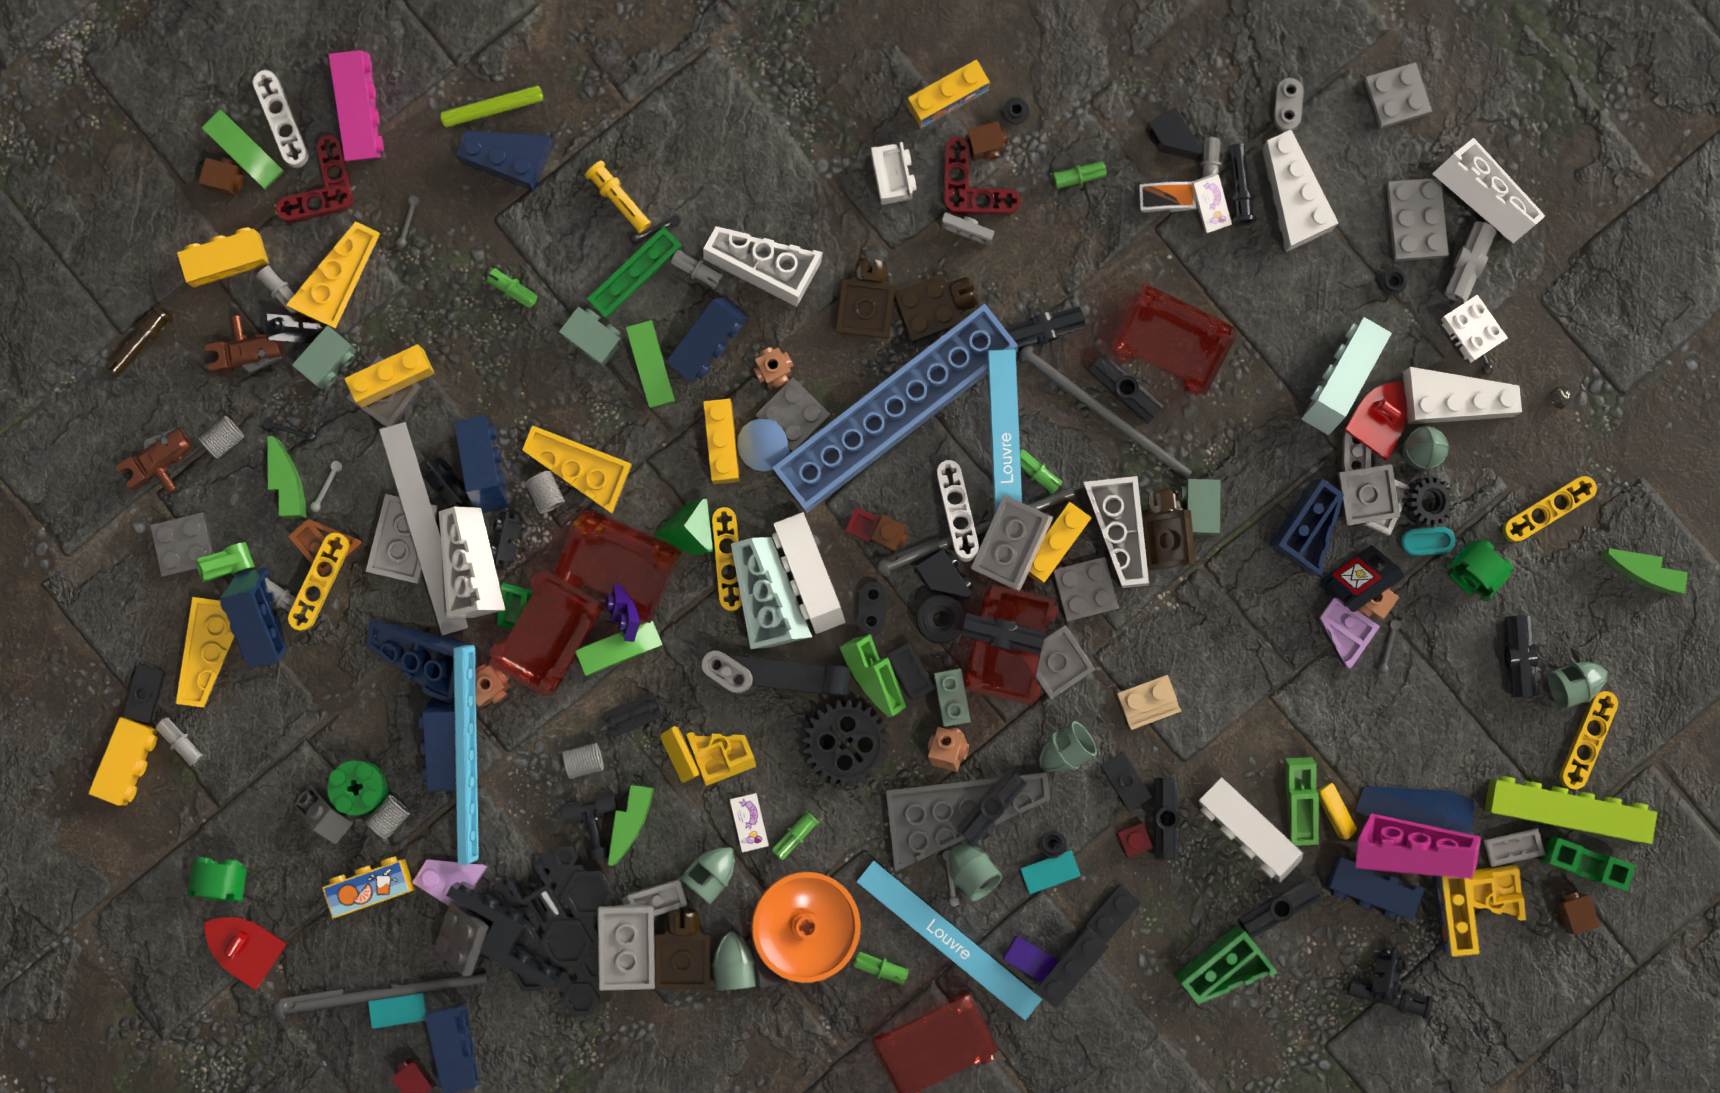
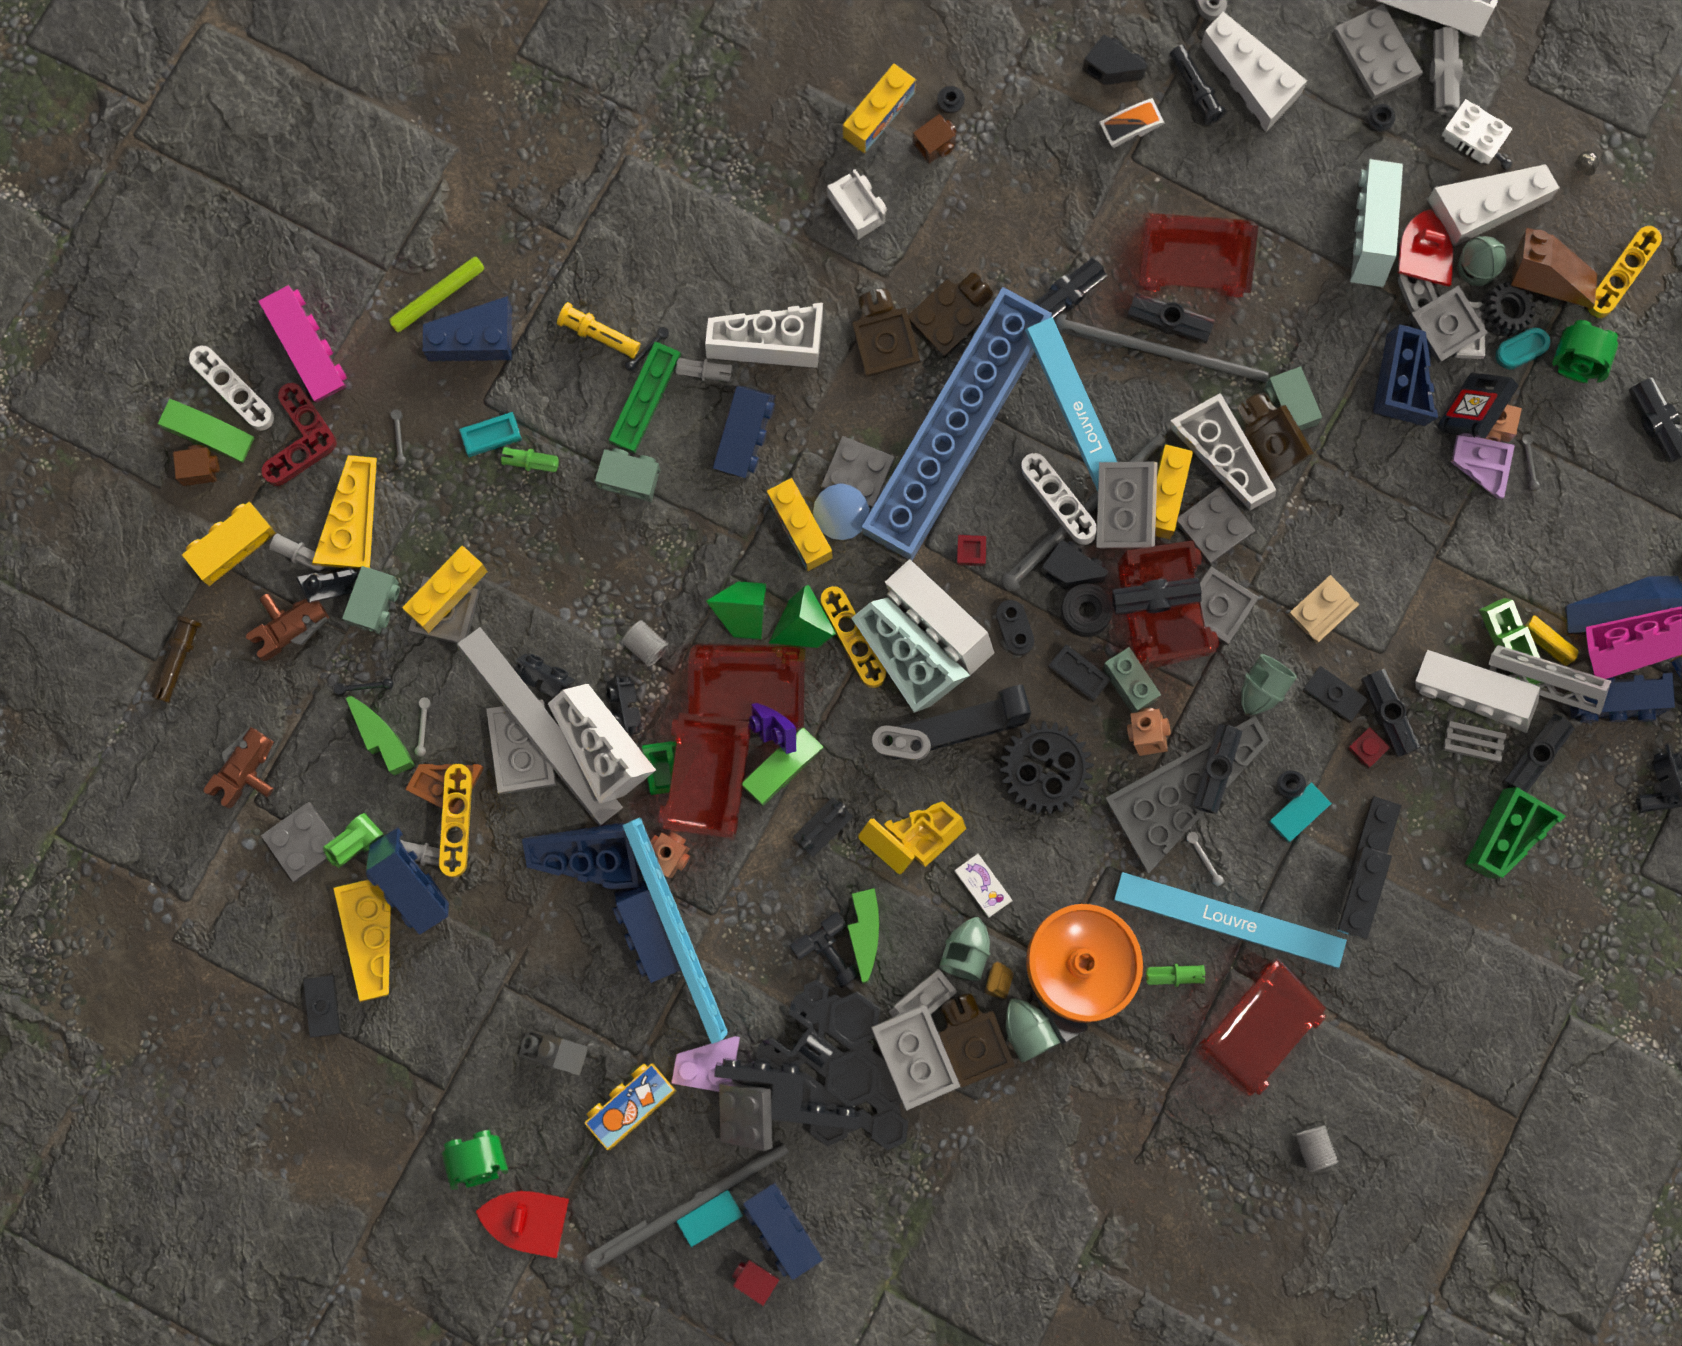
camera: 20 degrees left, 5 degrees down
(124, 762) = (330, 1081): yellow brick -> none
(179, 741) = (377, 1038): light grey axle -> none
(221, 437) = (298, 719): light grey piece -> none
(348, 775) = (561, 1007): green brick -> none
(387, 817) = (620, 1027): light grey piece -> none
(480, 463) = (571, 639): dark blue wedge -> none
(488, 251) = (490, 434): none -> teal tile
(583, 761) = (793, 891): light grey piece -> none
(586, 469) = (666, 605): yellow wing -> none
(641, 495) = (741, 609): none -> green slope
(650, 364) = (697, 478): bright green slope -> none
(726, 912) = (999, 981): none -> pearl gold slope
(777, 376) = (822, 441): nougat brick -> none
(795, 835) = (1034, 879): bright green axle -> none
(873, 674) = (1046, 689): bright green slope -> none
(889, 534) = (1002, 548): reddish brown brick -> none
(967, 228) = (952, 227): light grey plate -> none
(970, 194) = (939, 196): dark red beam -> none
(971, 869) = (1222, 840): sand green helmet -> none
(1029, 959) = (1317, 905): dark purple slope -> none
(1039, 472) = (1123, 432): bright green axle -> none
(1079, 175) = (1037, 136): bright green axle -> none
(1211, 157) = (1159, 76): light grey axle -> none
(1211, 203) = (1176, 111): white tile -> none
(1248, 886) = (1498, 746): none -> light grey tile
(1317, 847) = (1553, 675): none -> light grey fence
(1484, 484) = (1553, 269): none -> reddish brown slope

